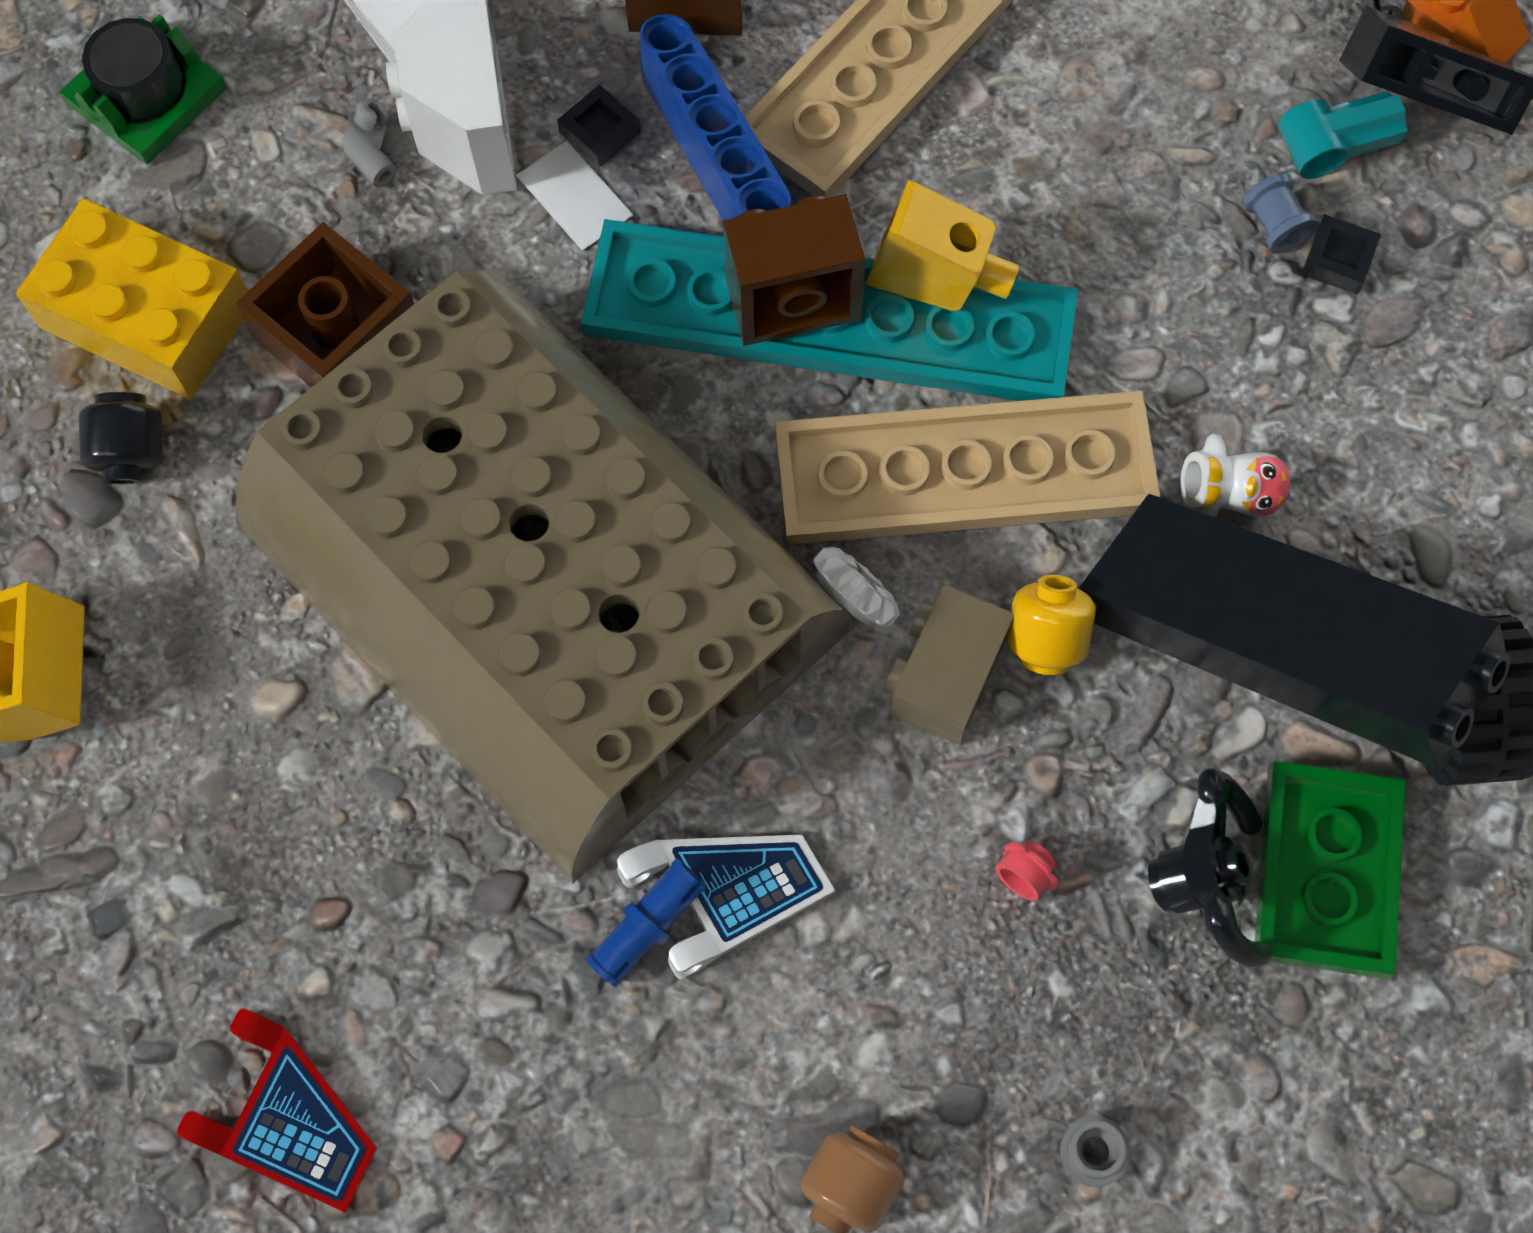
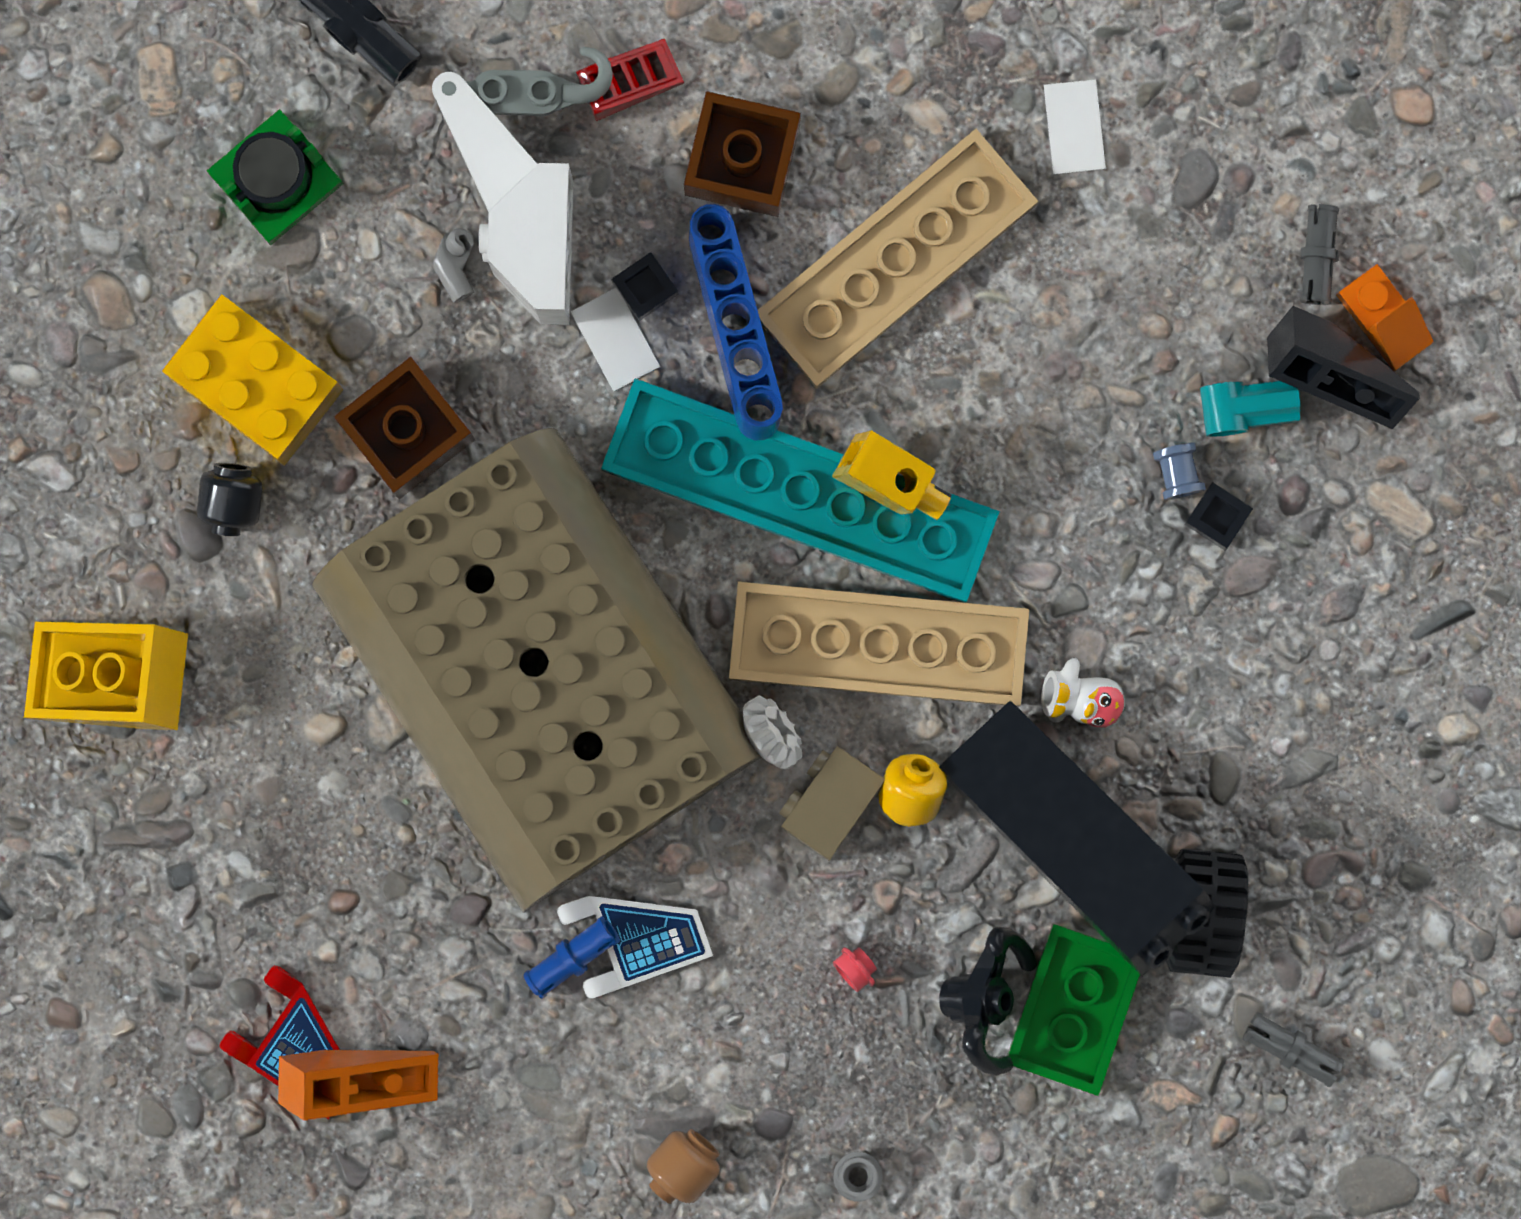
camera: 10 degrees right, 15 degrees up
(374, 1145) = (355, 1081): none -> orange slope
(794, 268) = (772, 471): reddish brown brick -> none

